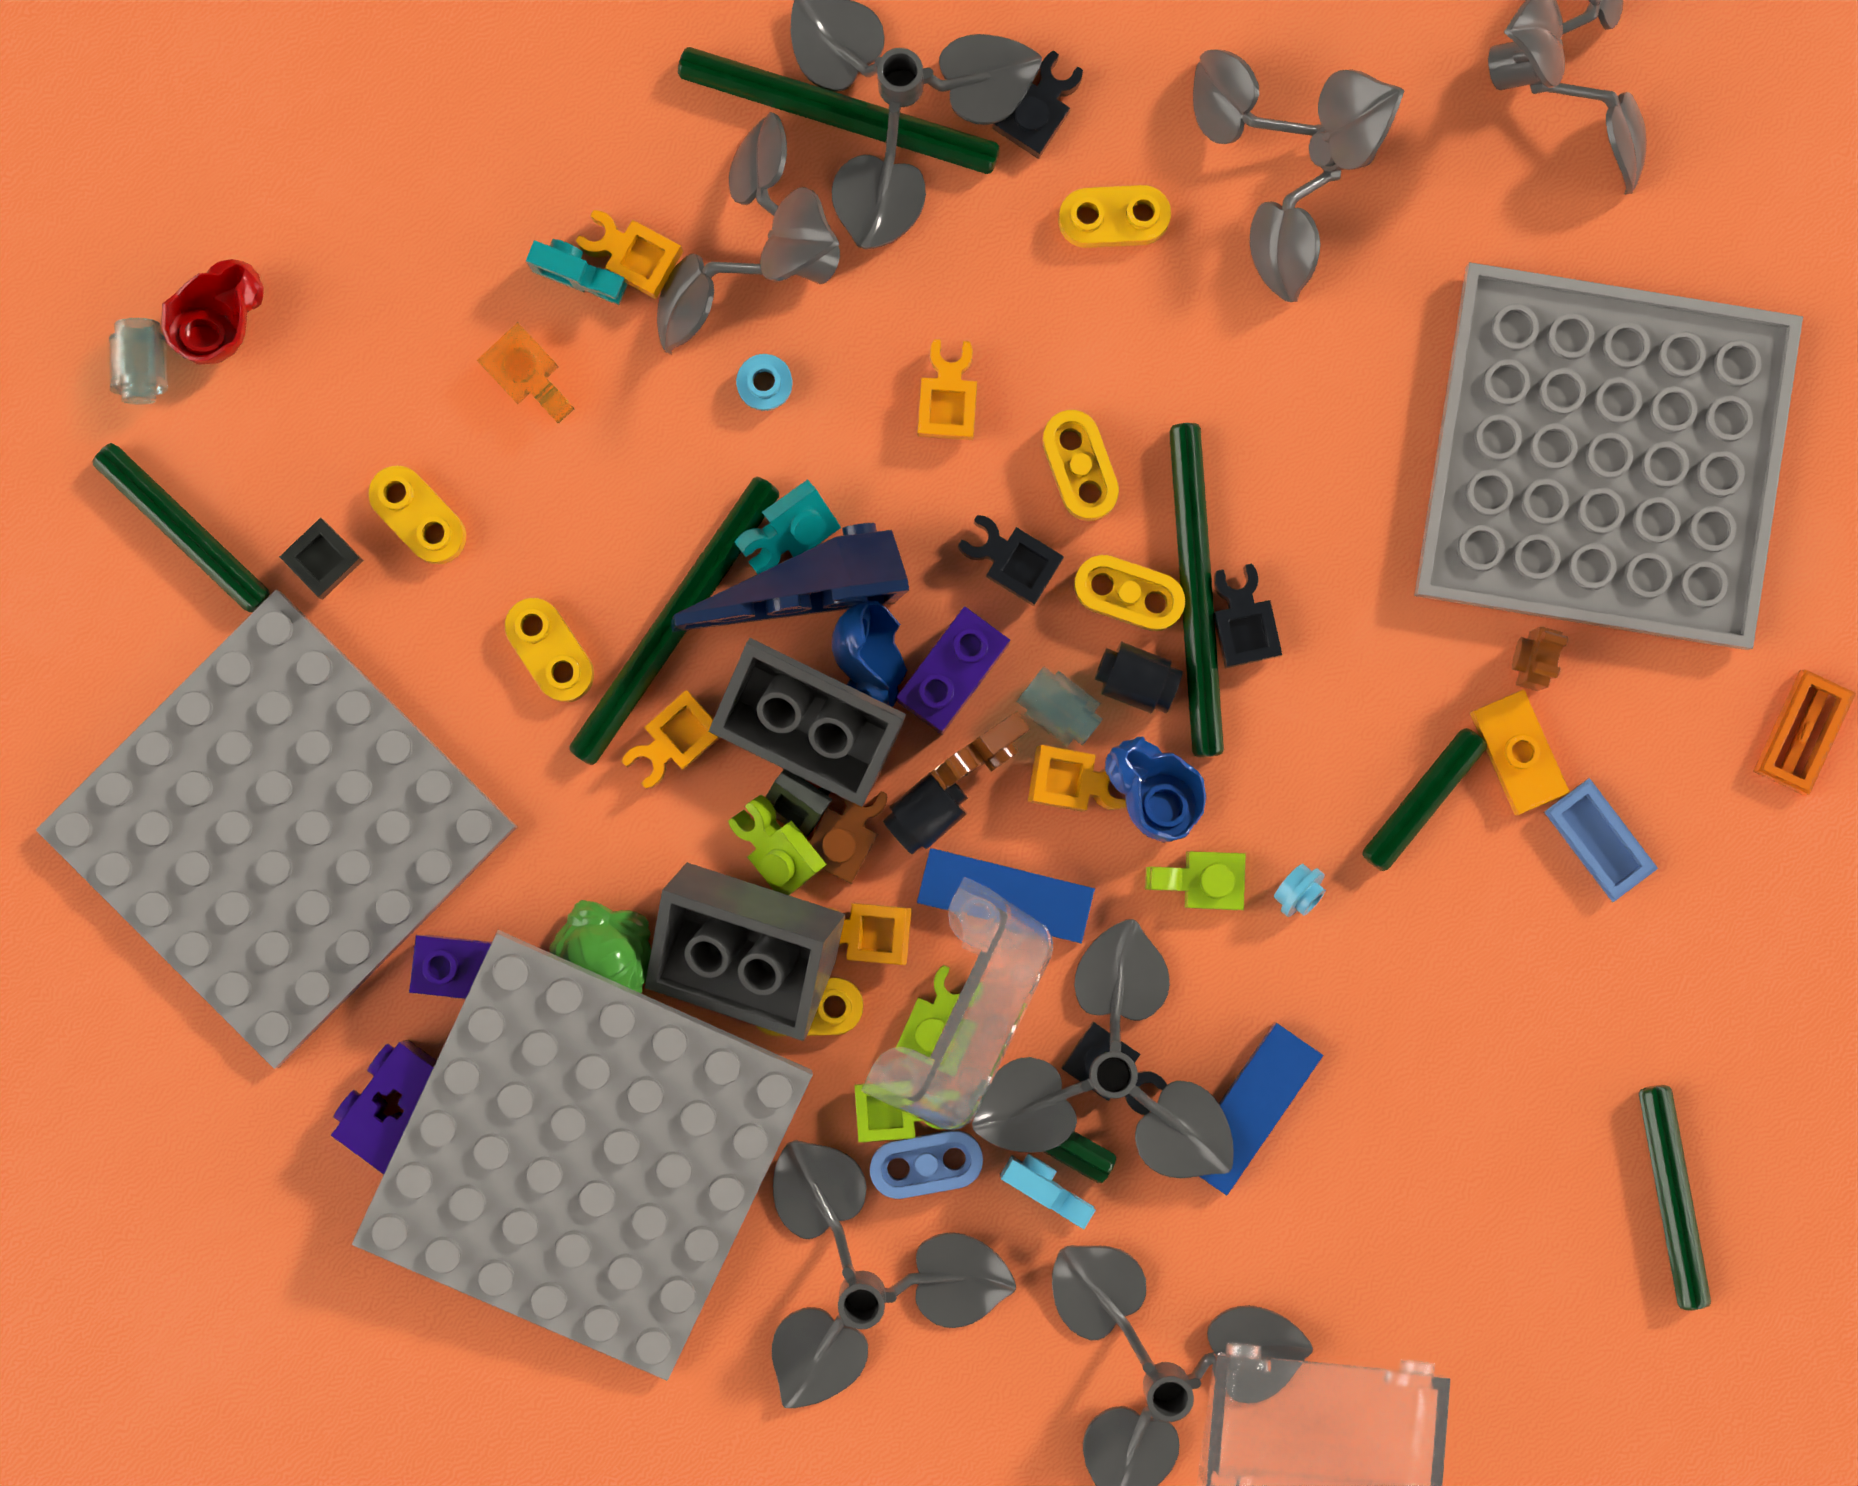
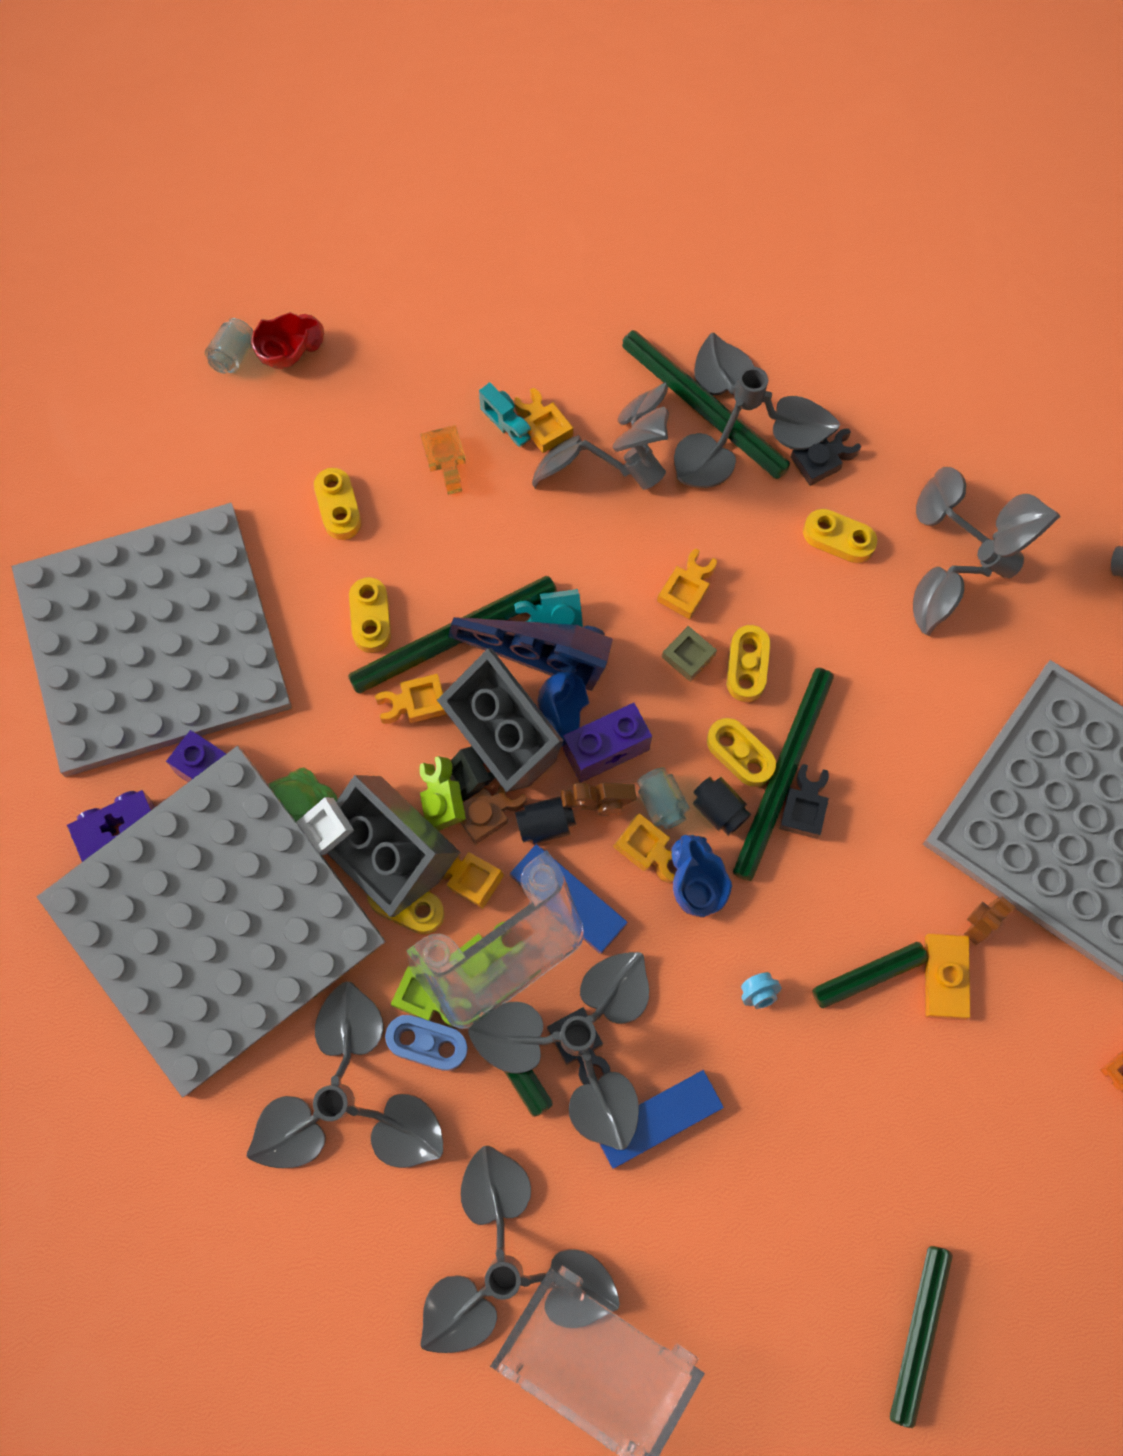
camera: 25 degrees right, 15 degrees down
(180, 527) = (198, 444): dark green axle -> none
(321, 558) = (266, 495): pearl dark grey tile -> none
(660, 971) = (325, 825): none -> white plate
(767, 399) = (581, 536): medium azure plate -> none
(997, 491) = (689, 653): none -> olive plate
(1019, 564) = (680, 701): black plate -> none
(1035, 1180) = (492, 1089): medium azure plate -> none
(1208, 880) = (703, 955): lime plate -> none
(1600, 840) = (977, 1061): medium blue tile -> none

